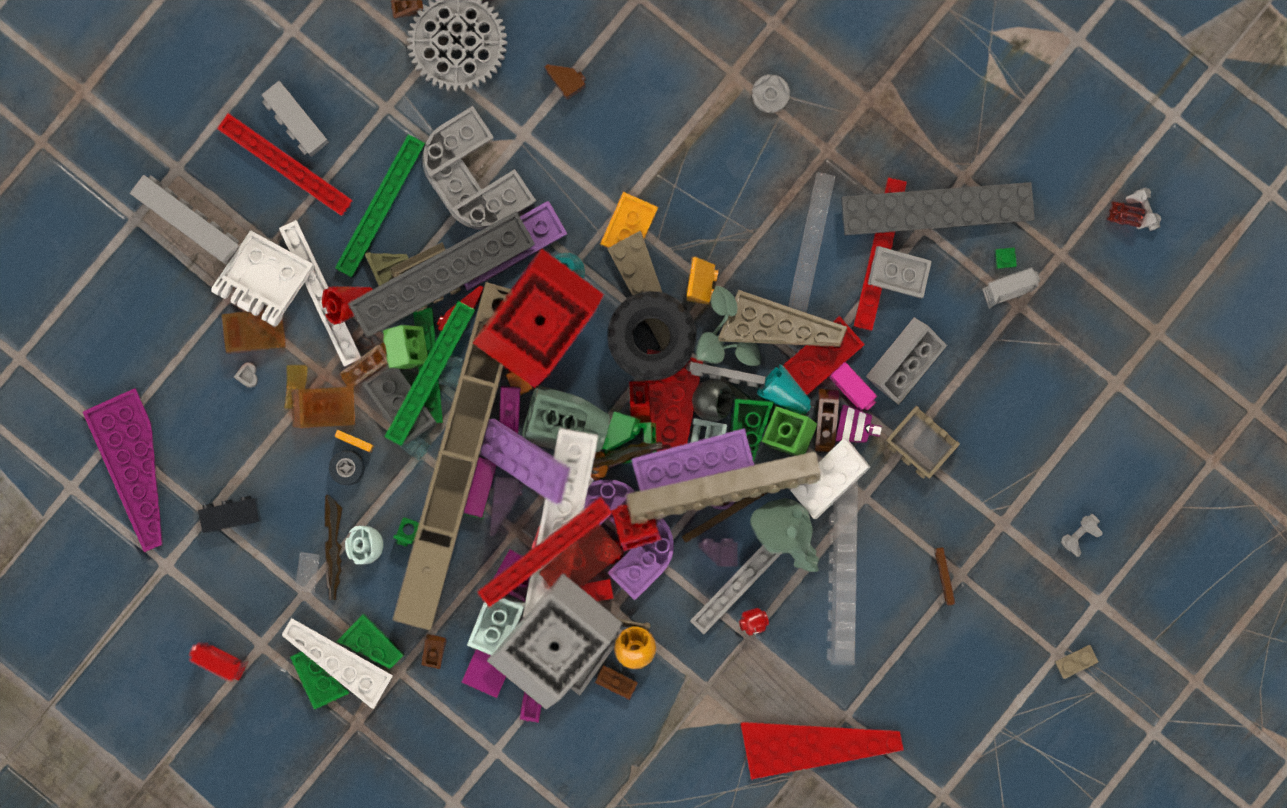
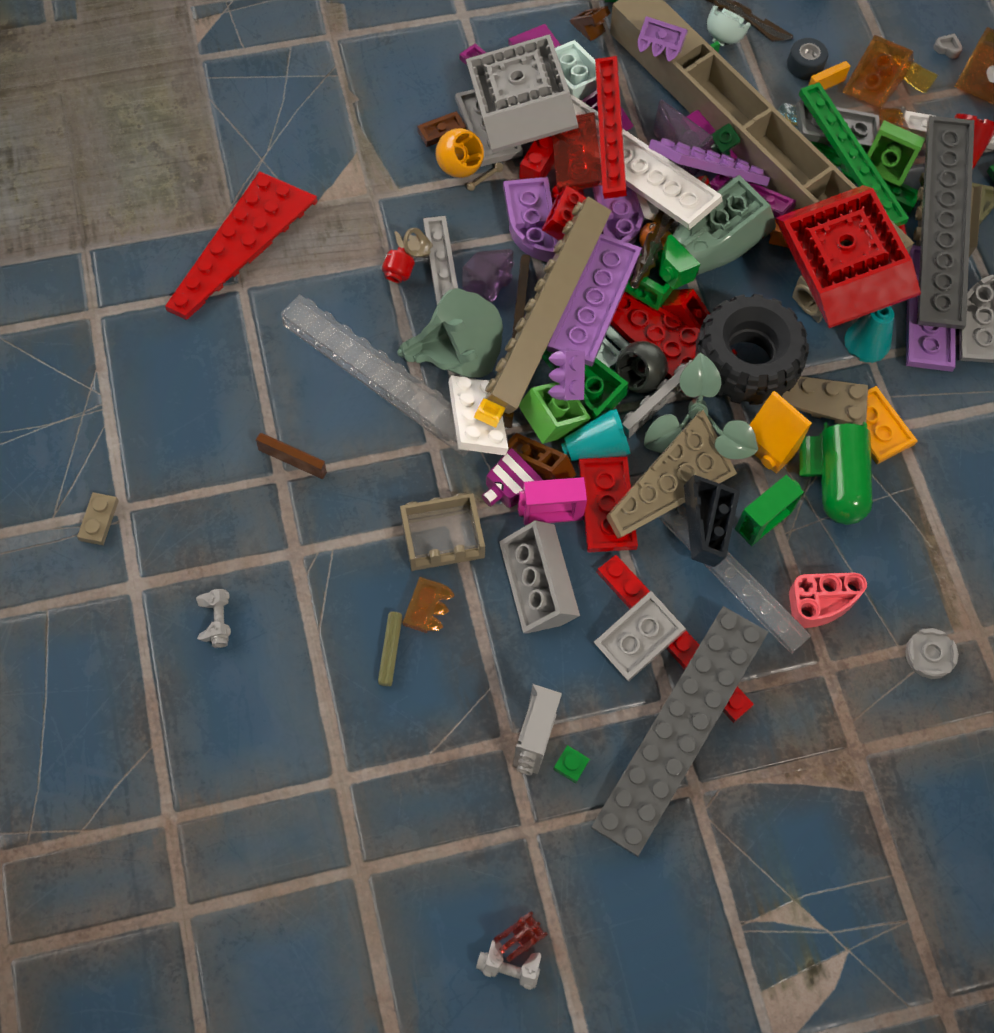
camera: 120 degrees right, 20 degrees down
(441, 569) = (662, 36): none -> medium lavender plate
(486, 470) = (724, 140): none -> dark green bracket
(683, 227) = (845, 465): none -> green piece
(730, 621) = (417, 246): none -> dark tan piece
(754, 250) = (769, 510): none -> green window
(766, 435) = (569, 375): none -> medium lavender plate
(791, 176) = (821, 604): none -> coral beam
(793, 280) = (709, 518): none -> black wedge
(829, 468) = (489, 412): none -> yellow tile
(976, 415) = (426, 604): none -> clear orange plate
(1019, 416) = (390, 649): none -> olive axle

